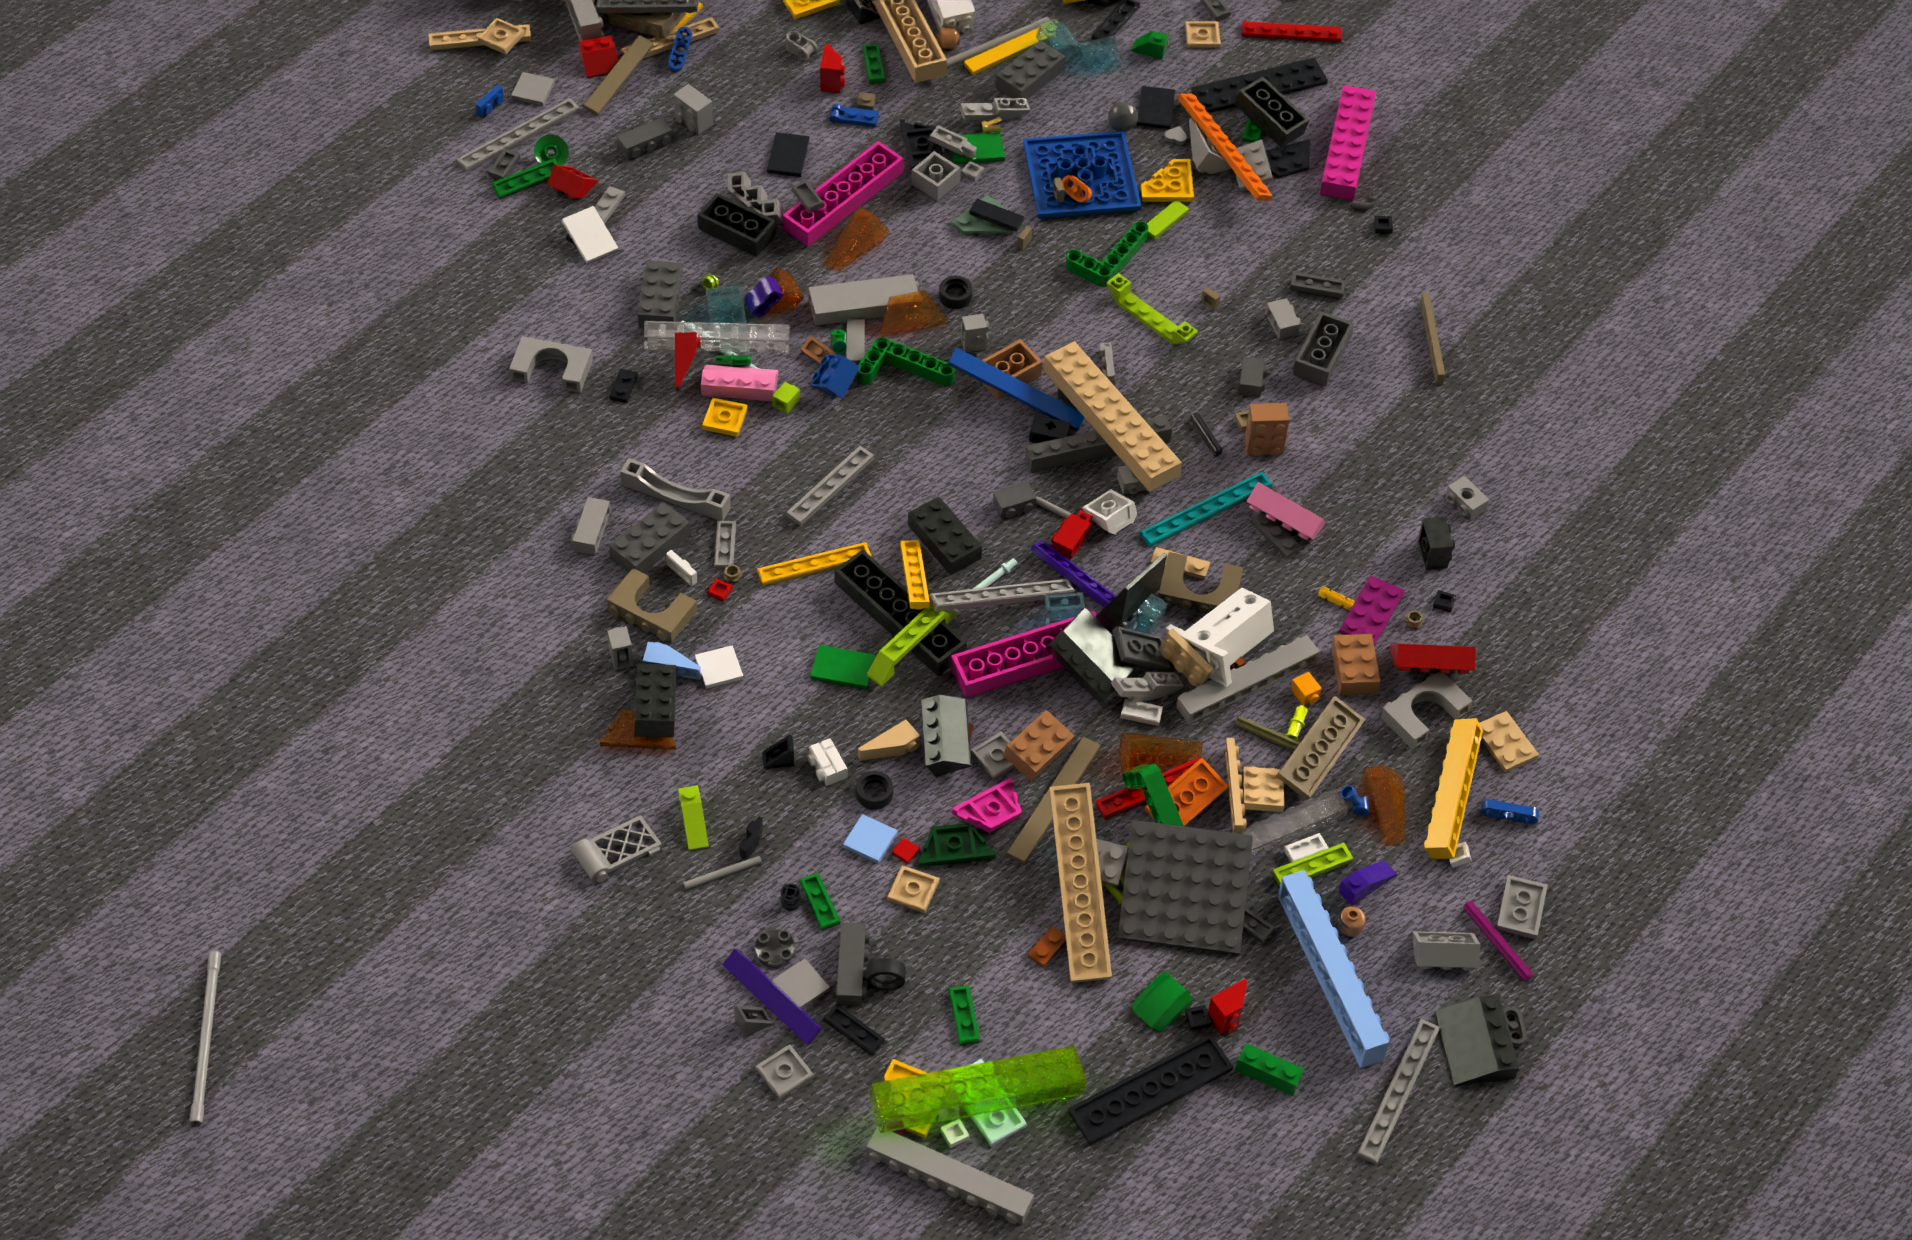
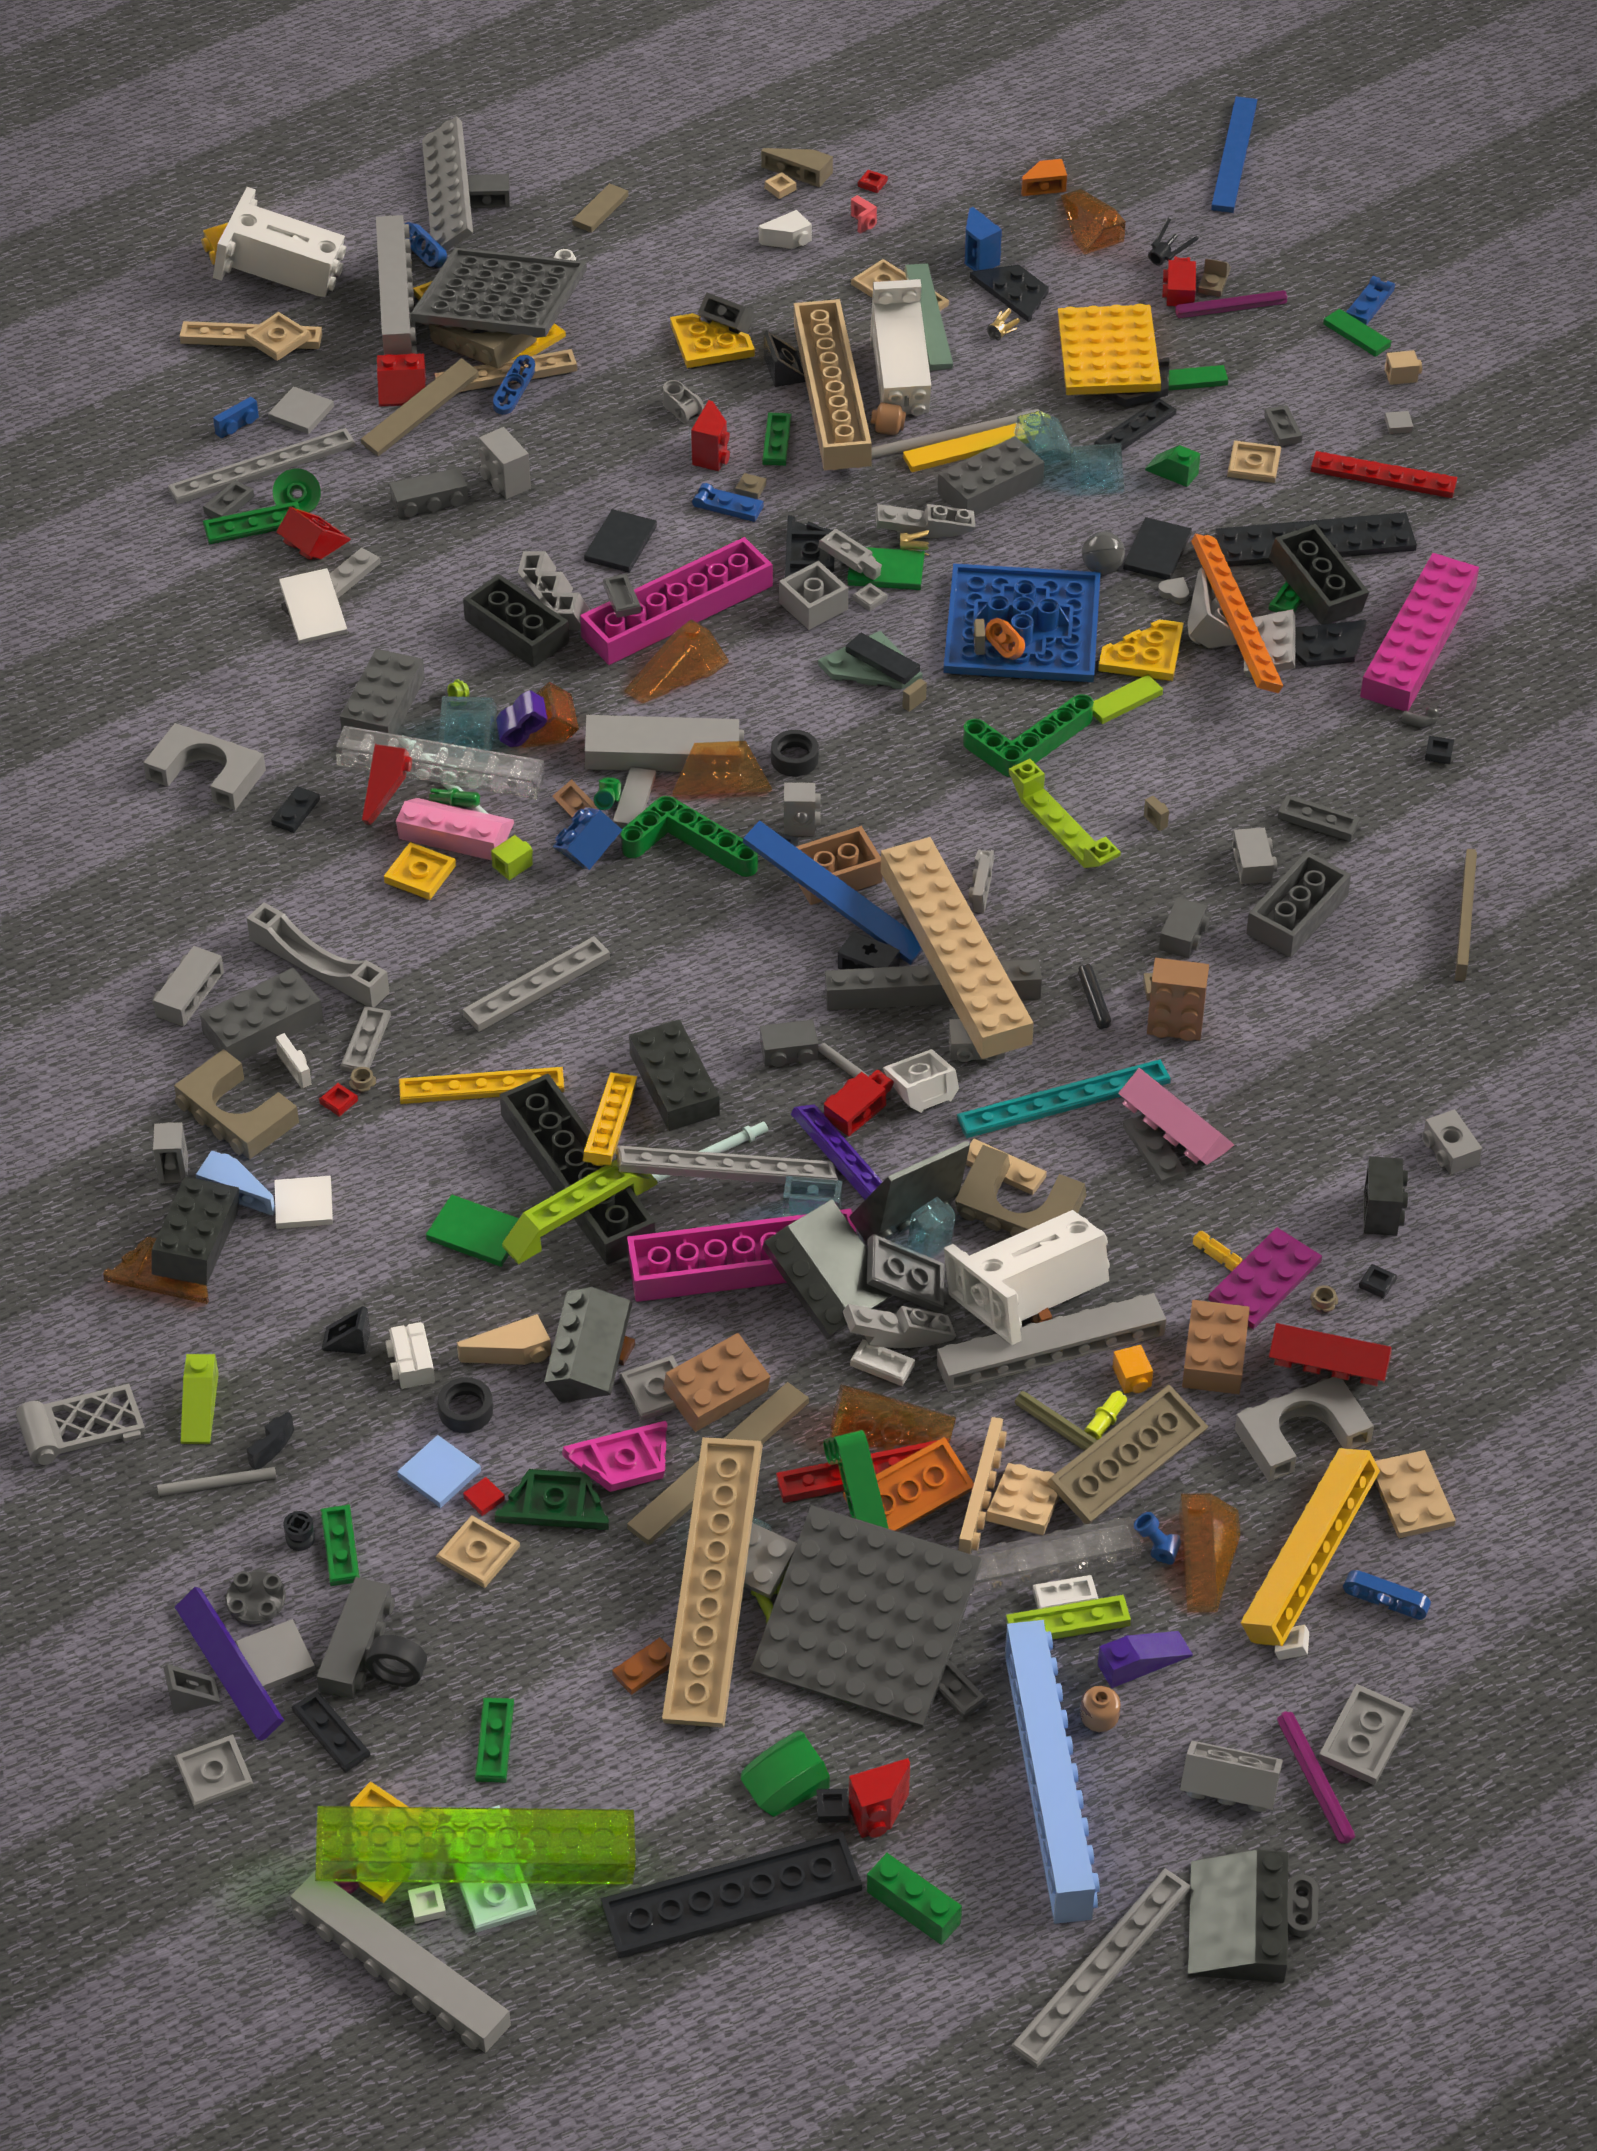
camera: 15 degrees right, 5 degrees down
(1185, 658) = (963, 1296): tan plate -> none

